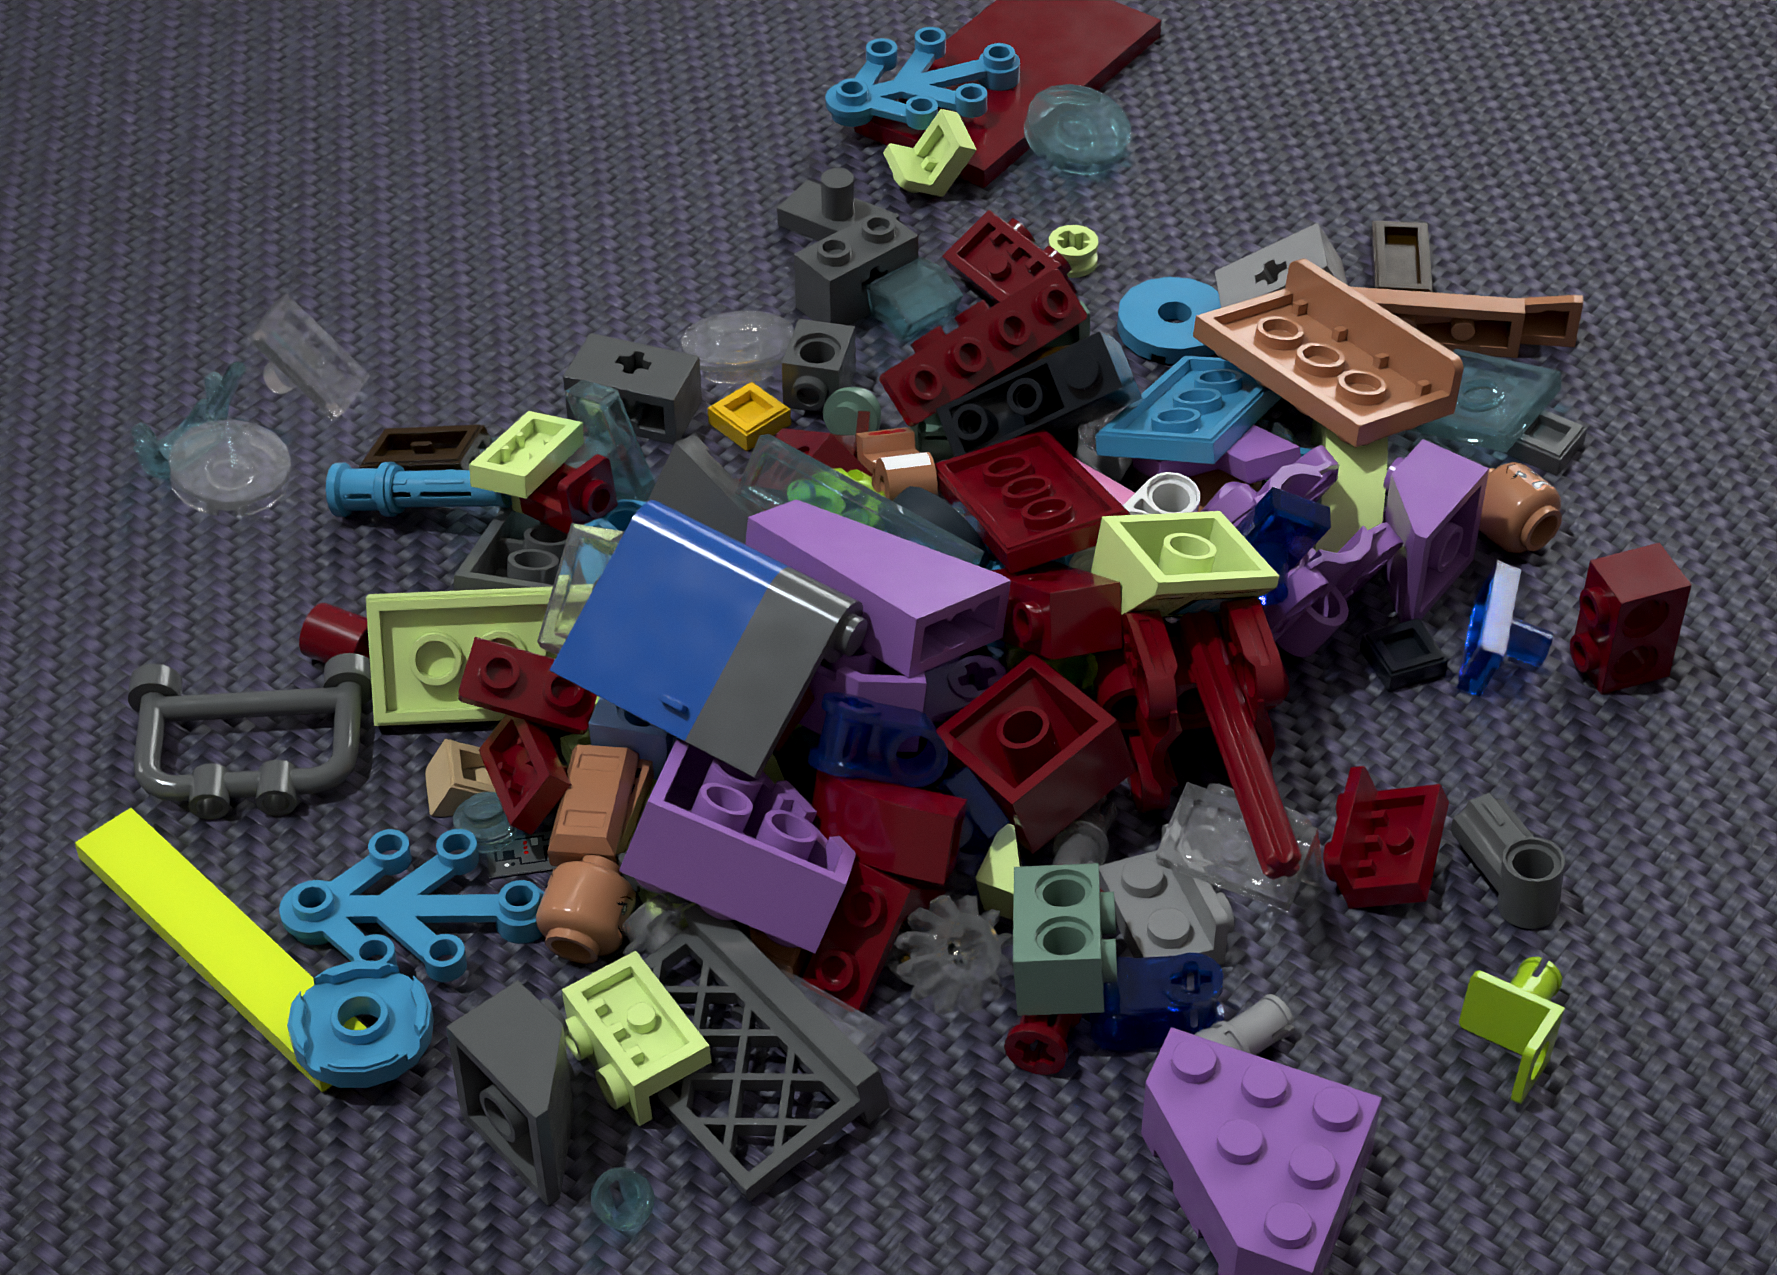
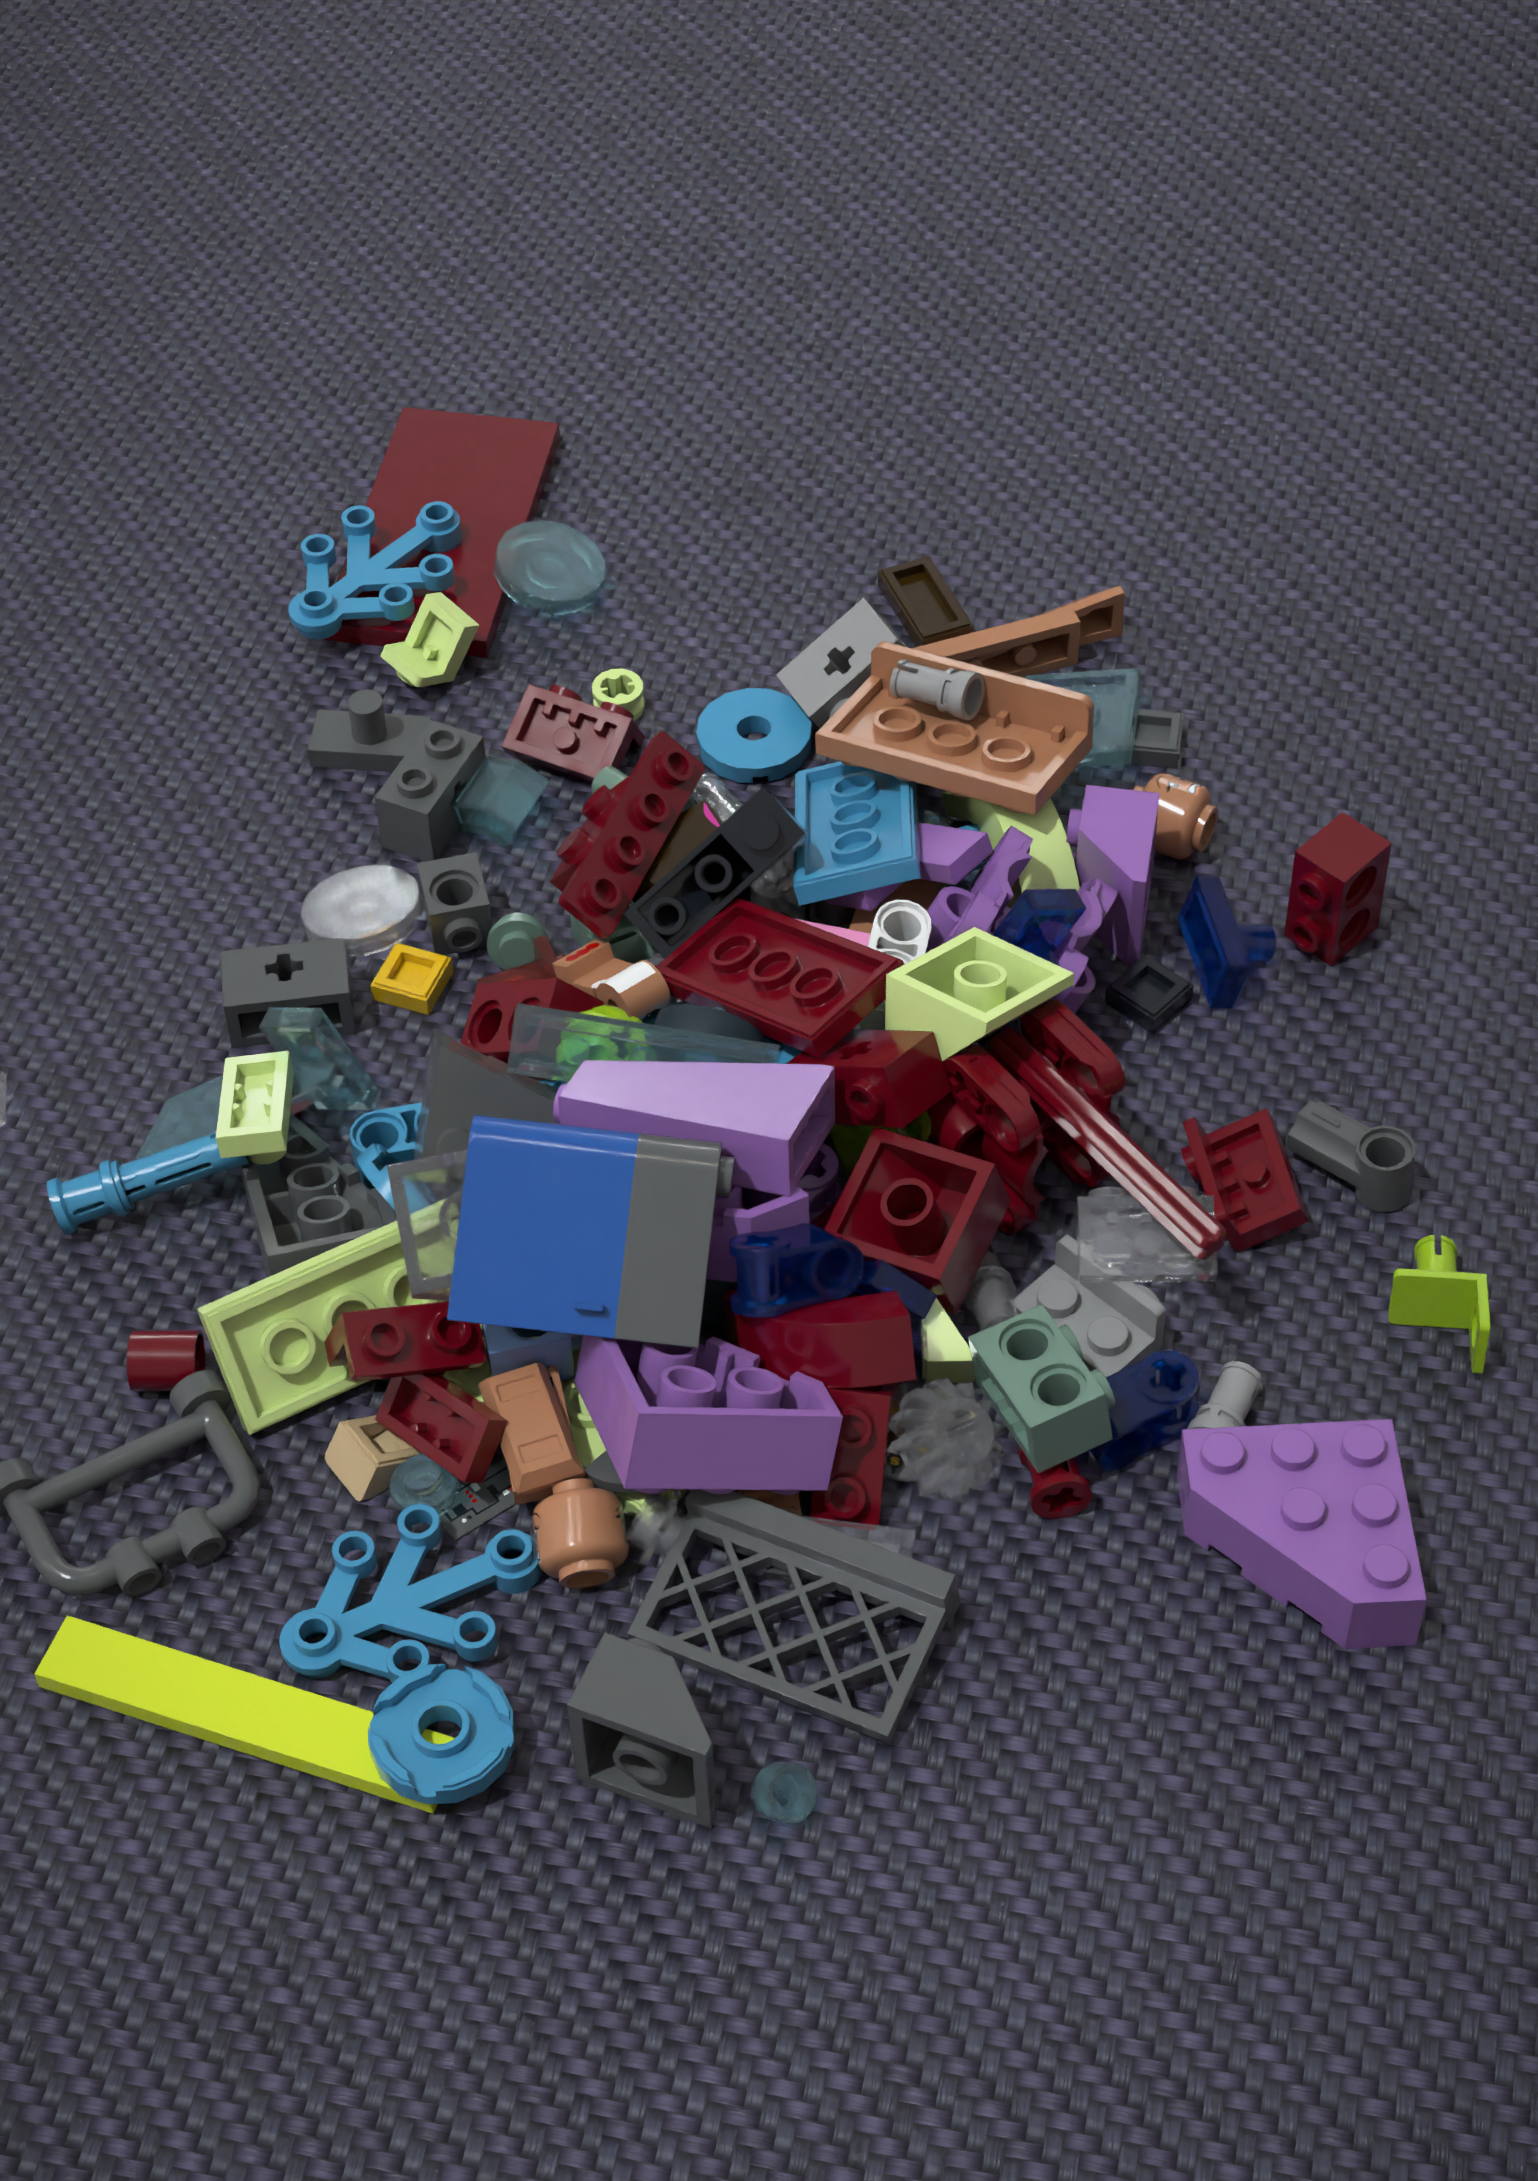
camera: 25 degrees left, 5 degrees up
(429, 447) = (123, 1140): dark brown tile -> none
(573, 495) = (324, 1132): dark red bracket -> none
(631, 1034) = (711, 1631): yellowish green bracket -> none
(1338, 316) = (949, 690): none -> light grey pin

